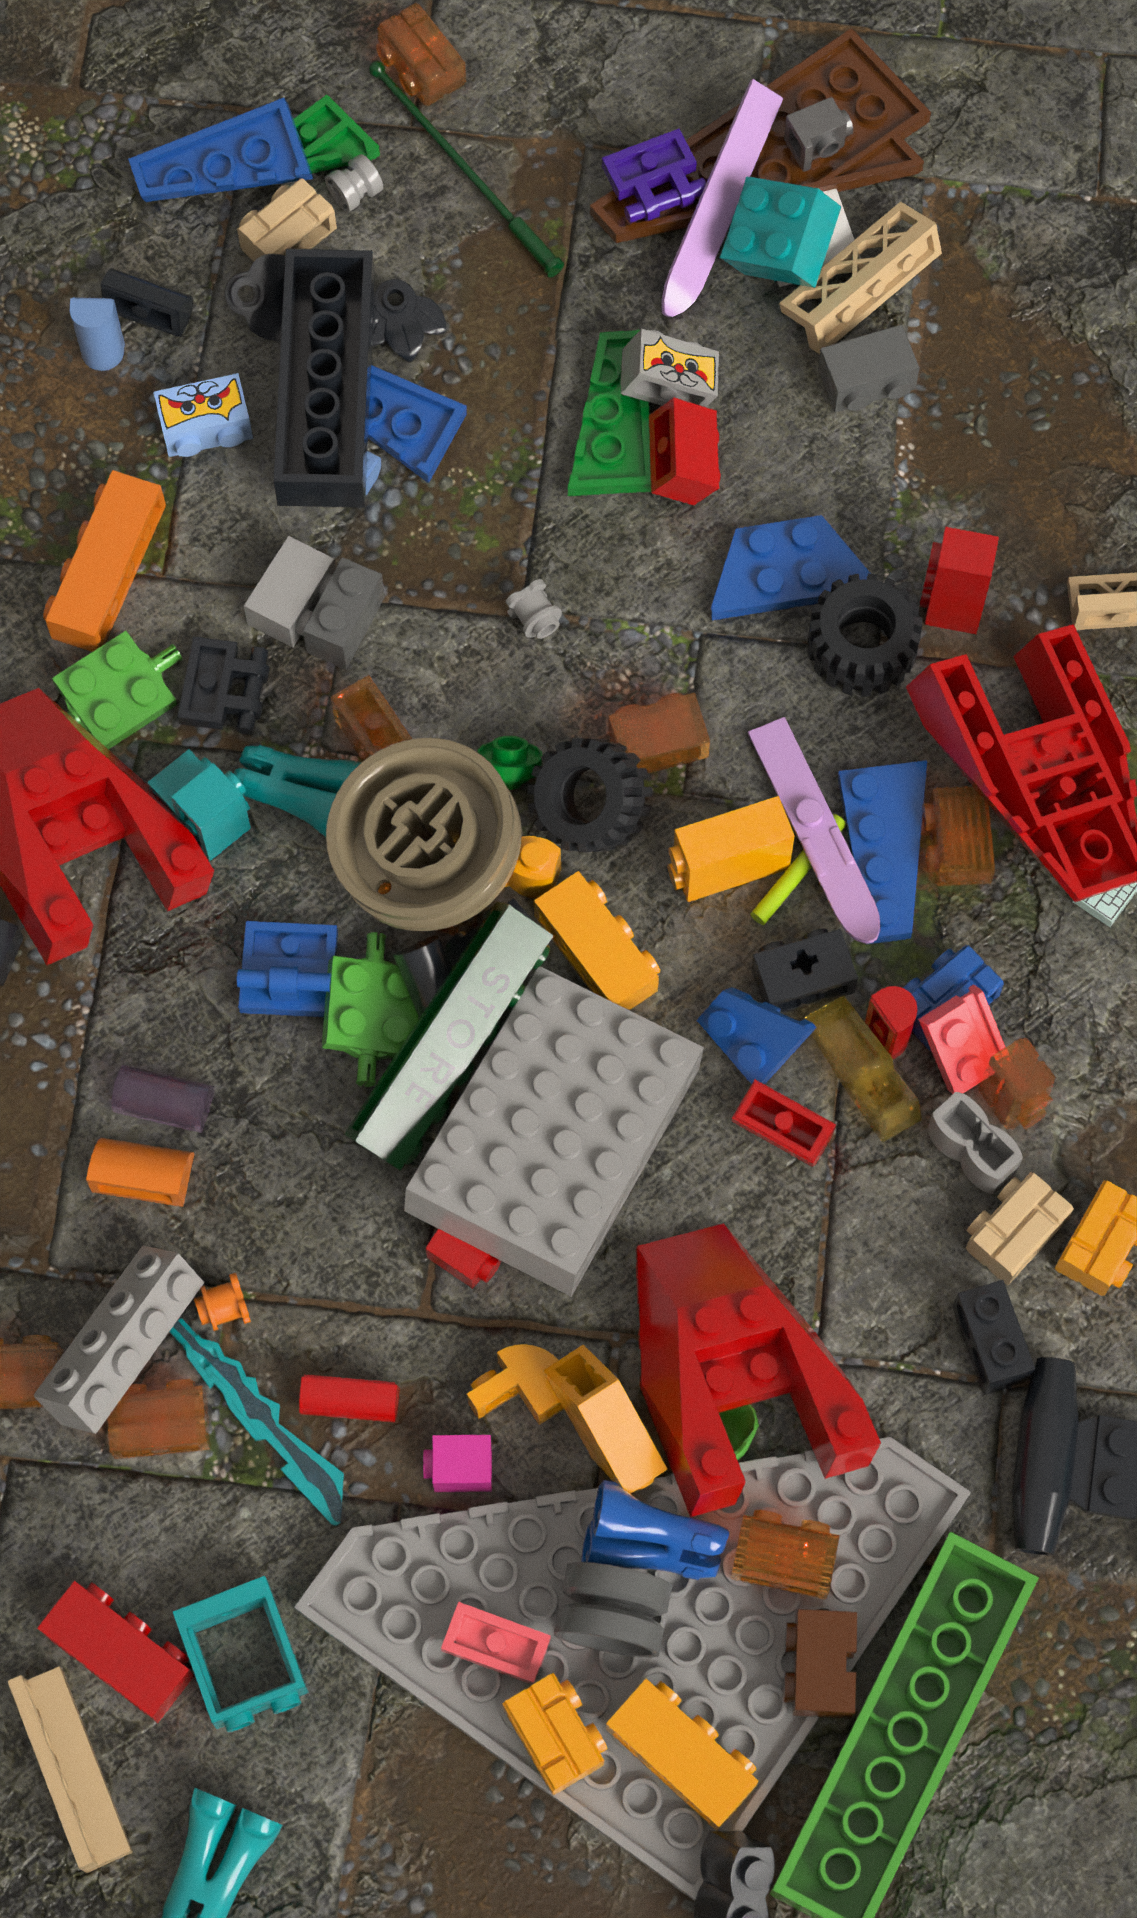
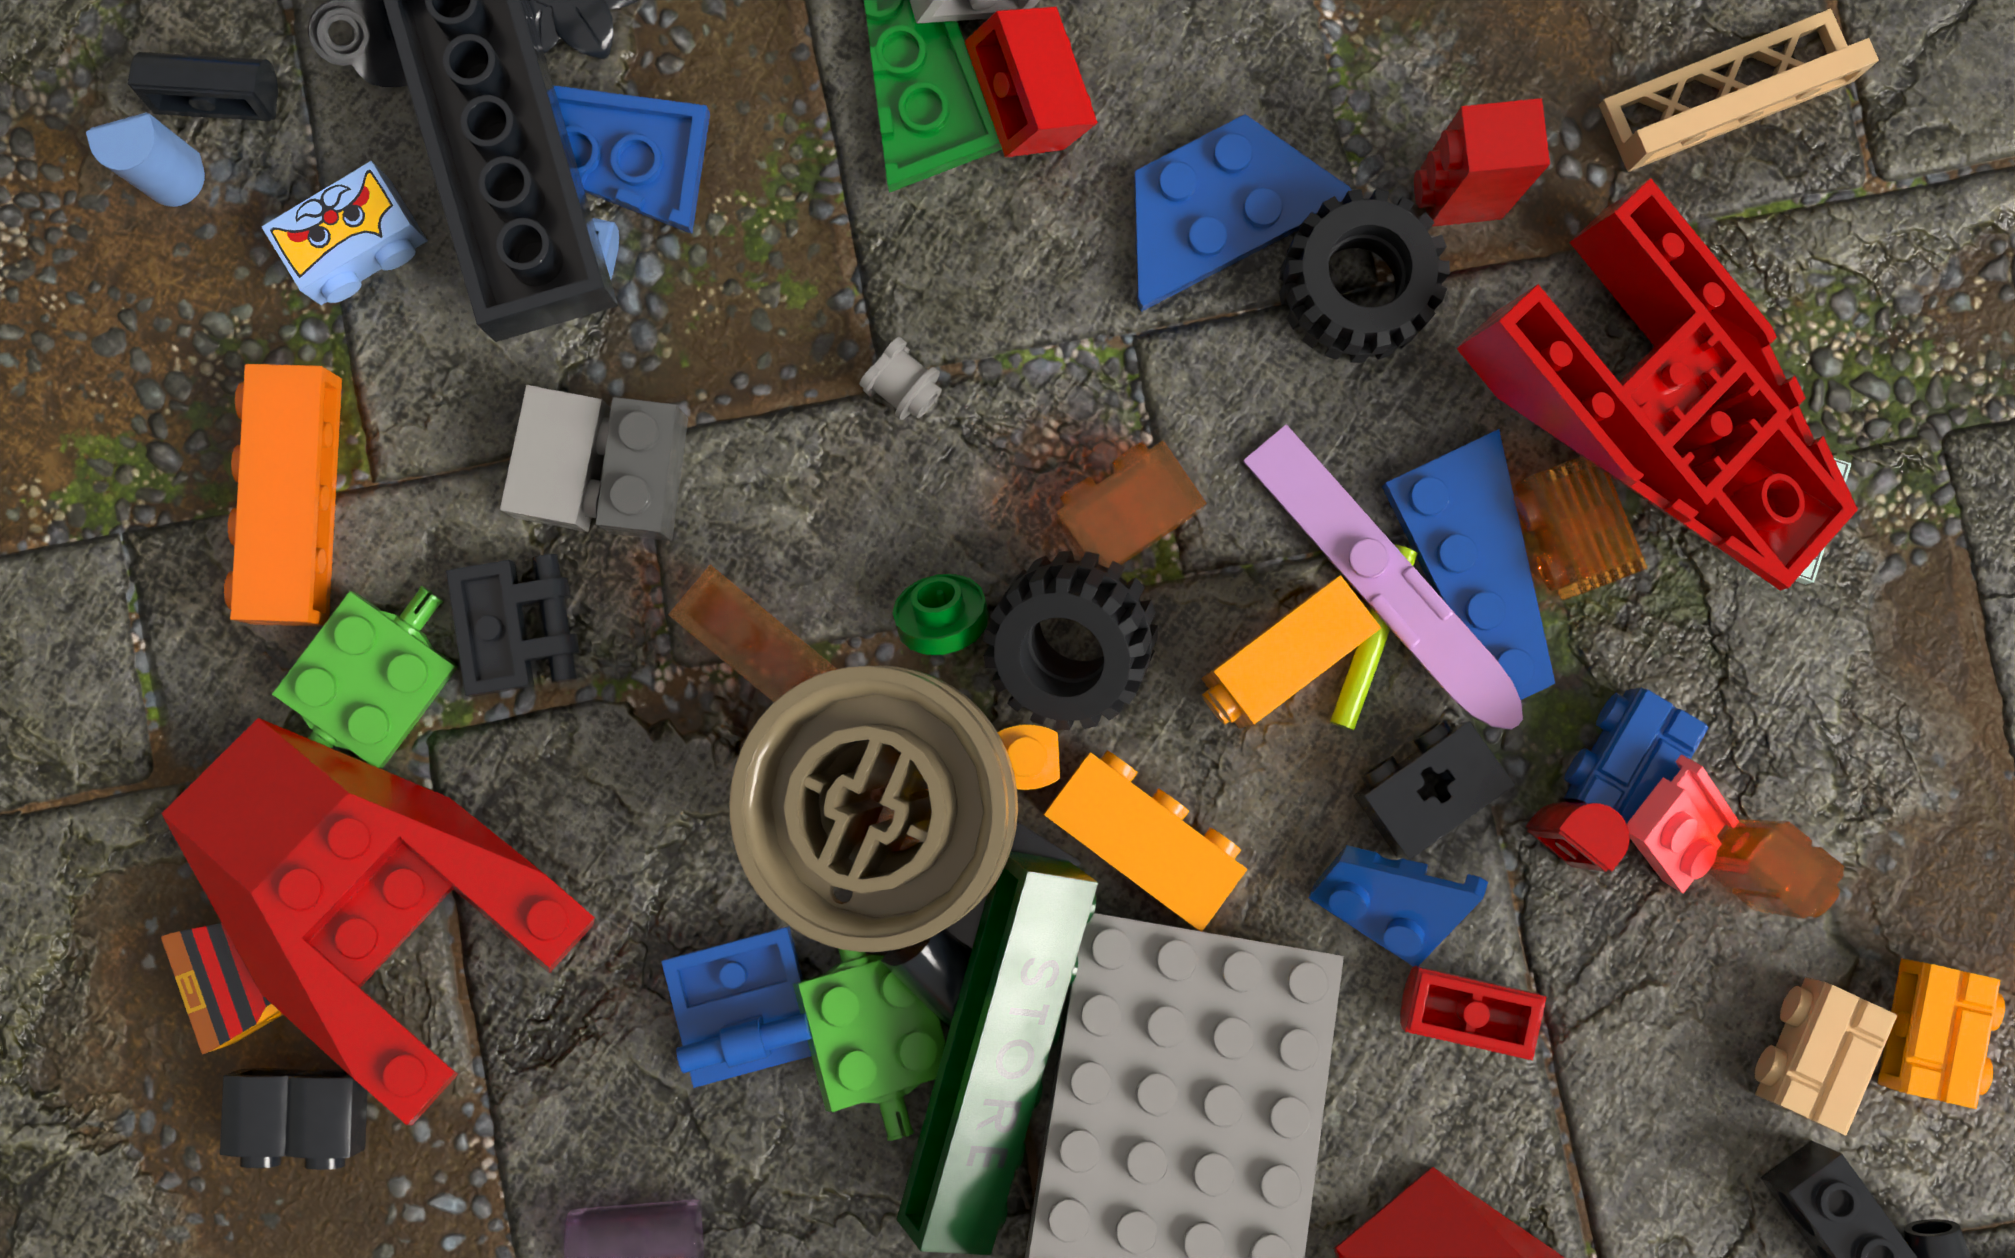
camera: 20 degrees left, 15 degrees up
(204, 801) = (540, 816): teal brick -> none
(276, 778) = (707, 768): teal piece -> none
(864, 1069) = (1551, 895): clear yellow slope -> none
(984, 1151) = (1742, 968): light grey brick -> none

